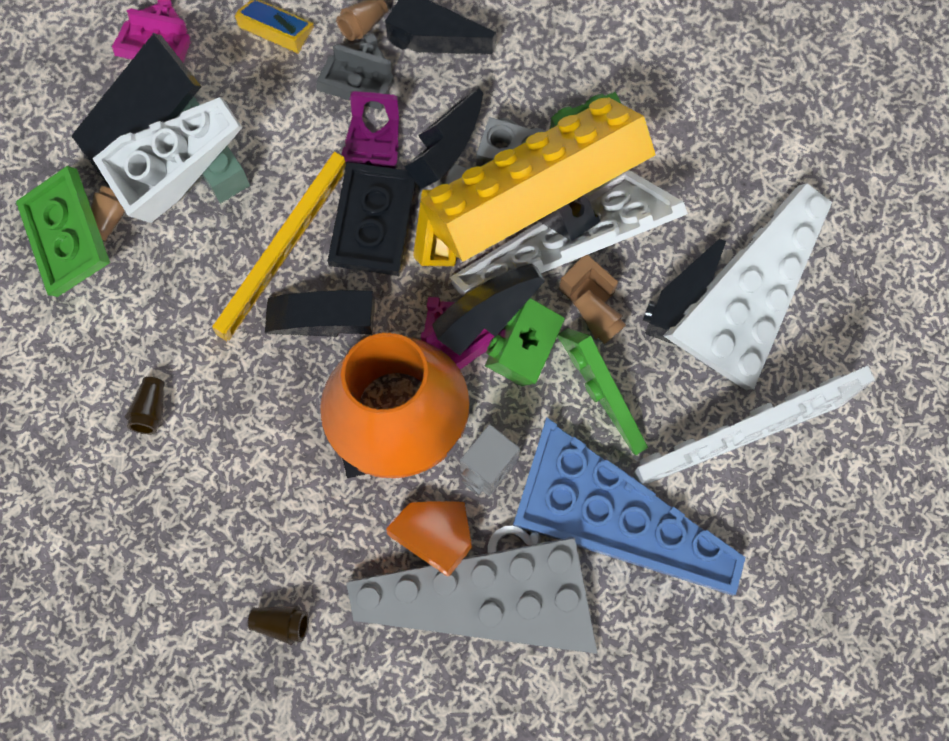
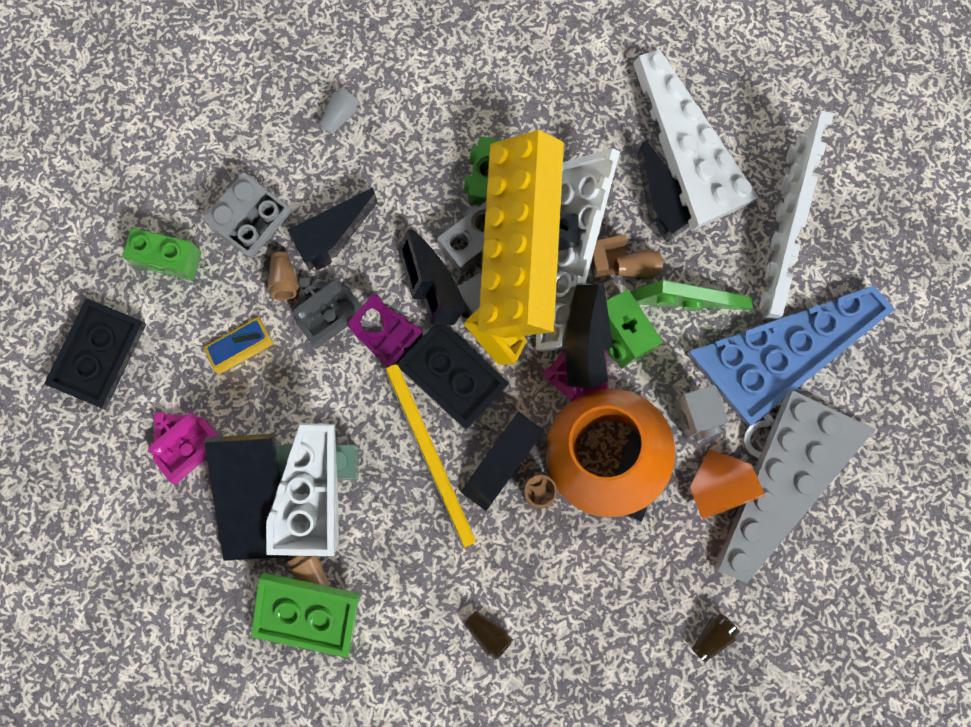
camera: 55 degrees left, 5 degrees up
(310, 358) = (540, 491): none -> medium nougat wheel

